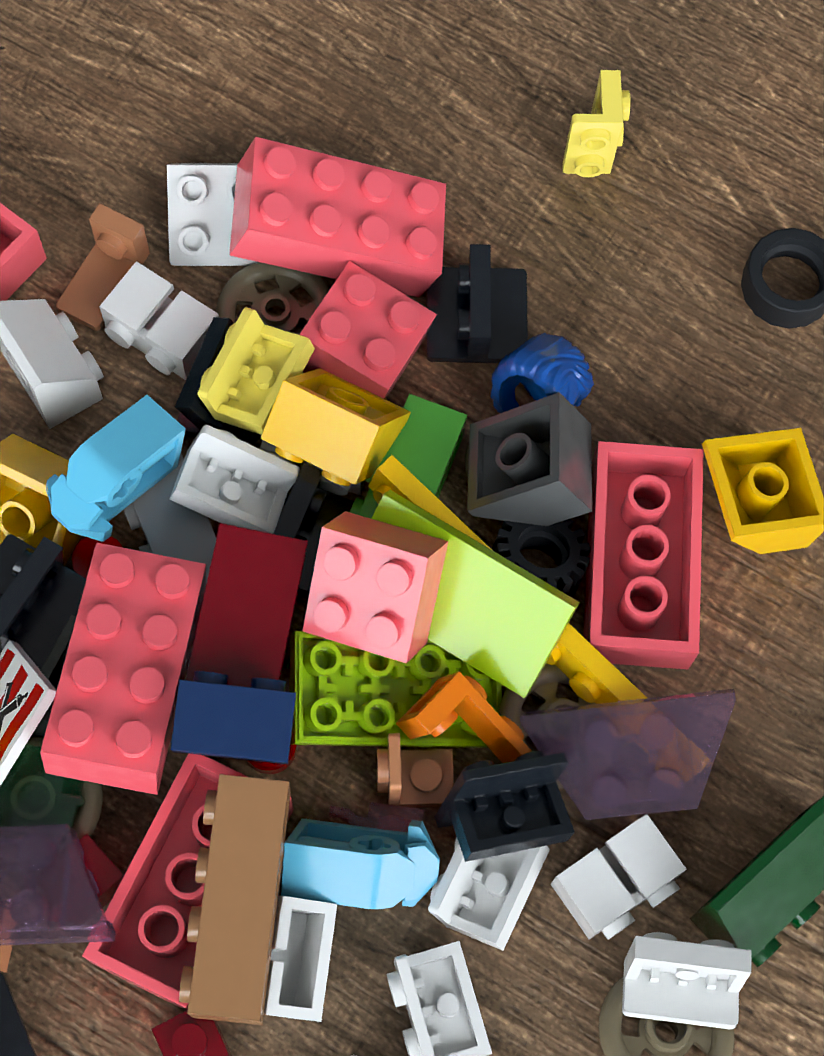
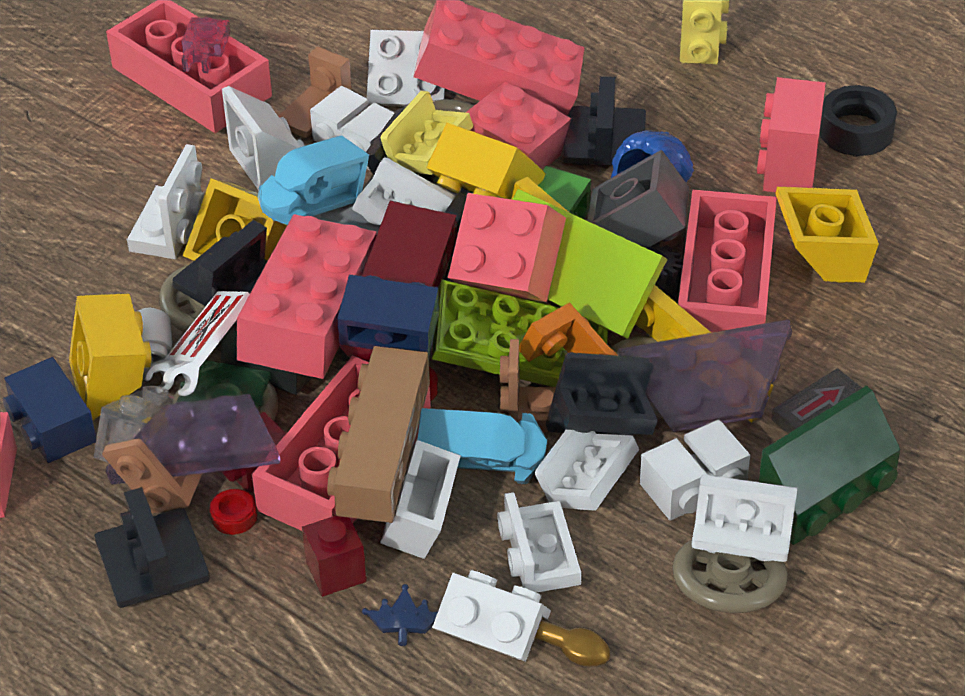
camera: 10 degrees right, 25 degrees down
(61, 967) = (233, 511): none -> red tile
(716, 328) = (791, 134): none -> coral brick
(761, 755) = (814, 400): none -> clear smoke tile

